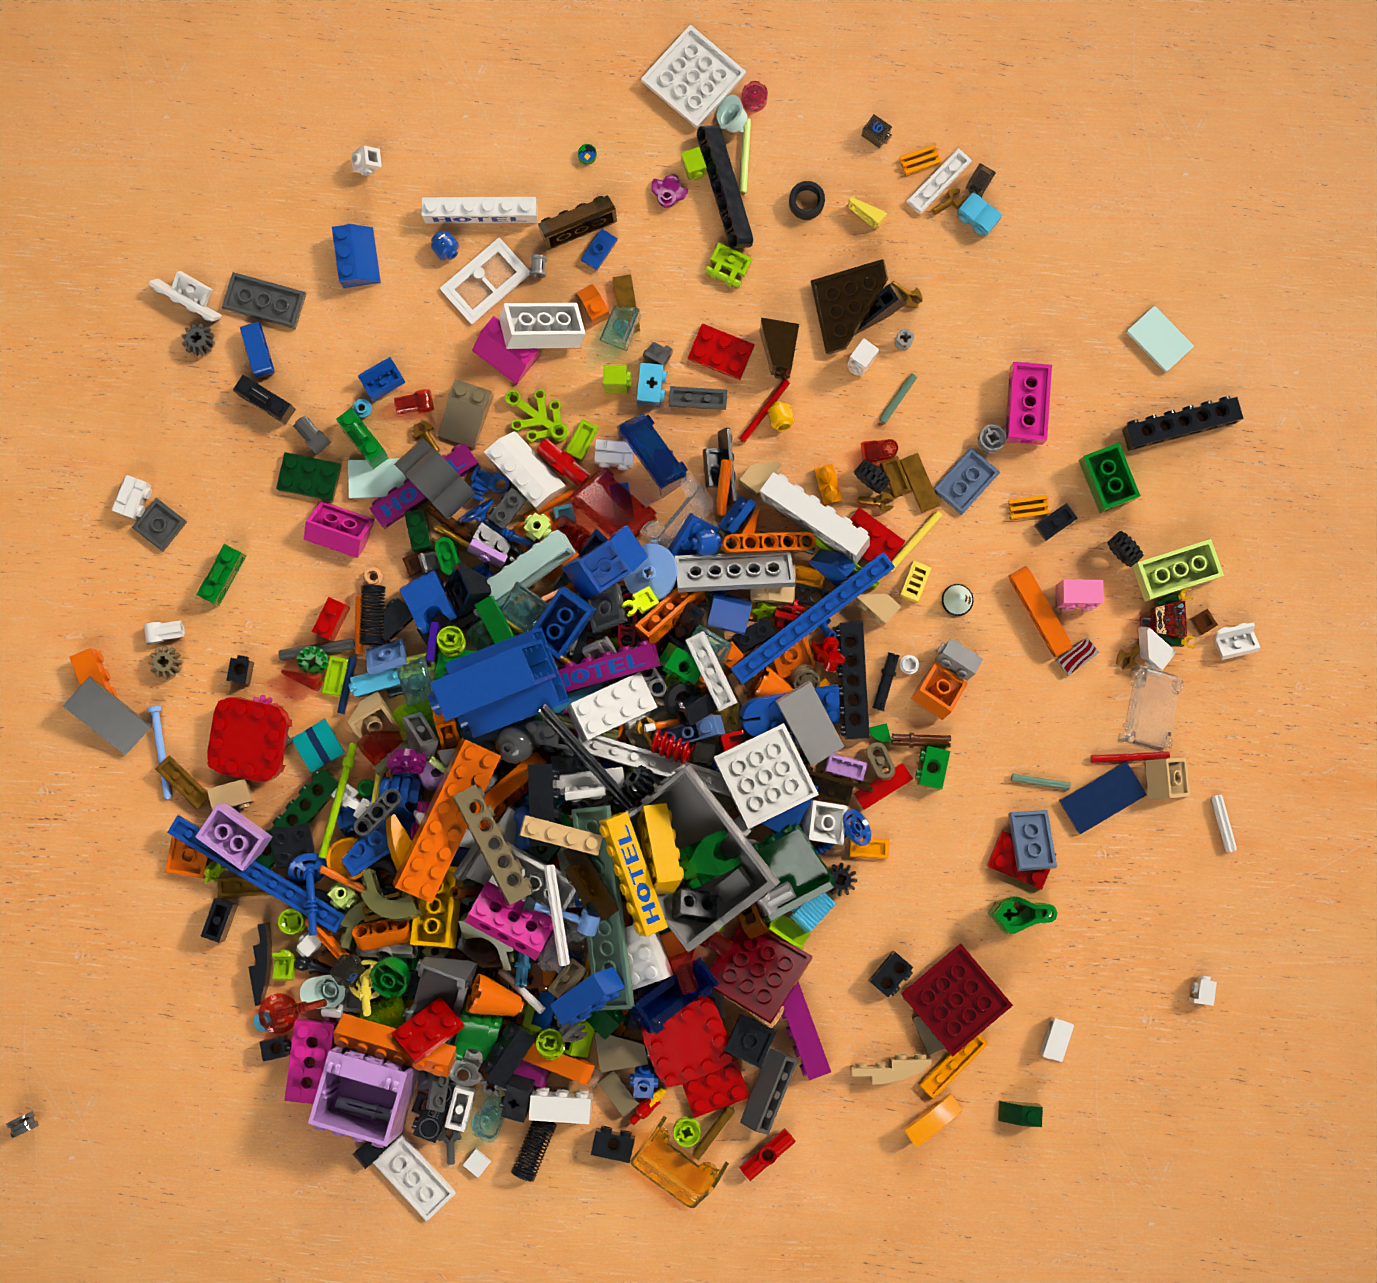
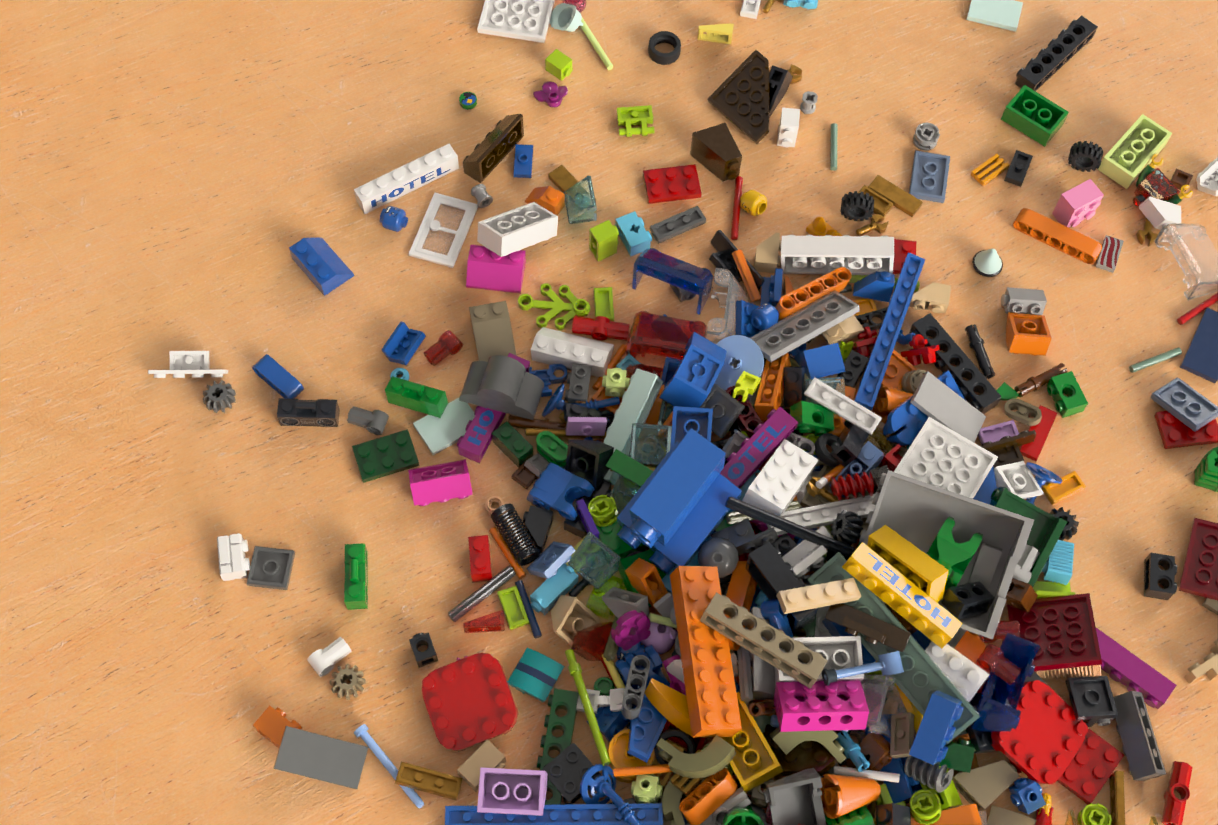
camera: 35 degrees left, 20 degrees down
(264, 300) = (259, 338): dark grey tile -> none
(307, 654) = (479, 596): green gear -> none
(366, 160) = (287, 188): white brick -> none
(427, 437) = (464, 370): pearl gold bar -> none
(556, 914) = (861, 669): white axle -> none
(613, 453) = (639, 298): white brick -> none
(657, 354) = (623, 209): flat silver panel -> none
(724, 187) = (596, 68): black beam -> none
(875, 450) = (850, 183): clear red piece -> none
(908, 595) = (946, 278): light yellow slope -> none
(909, 664) = (987, 329): white plate -> none
(917, 537) = (923, 232): light yellow bar -> none
(1018, 392) = (935, 96): dark pink brick -> none

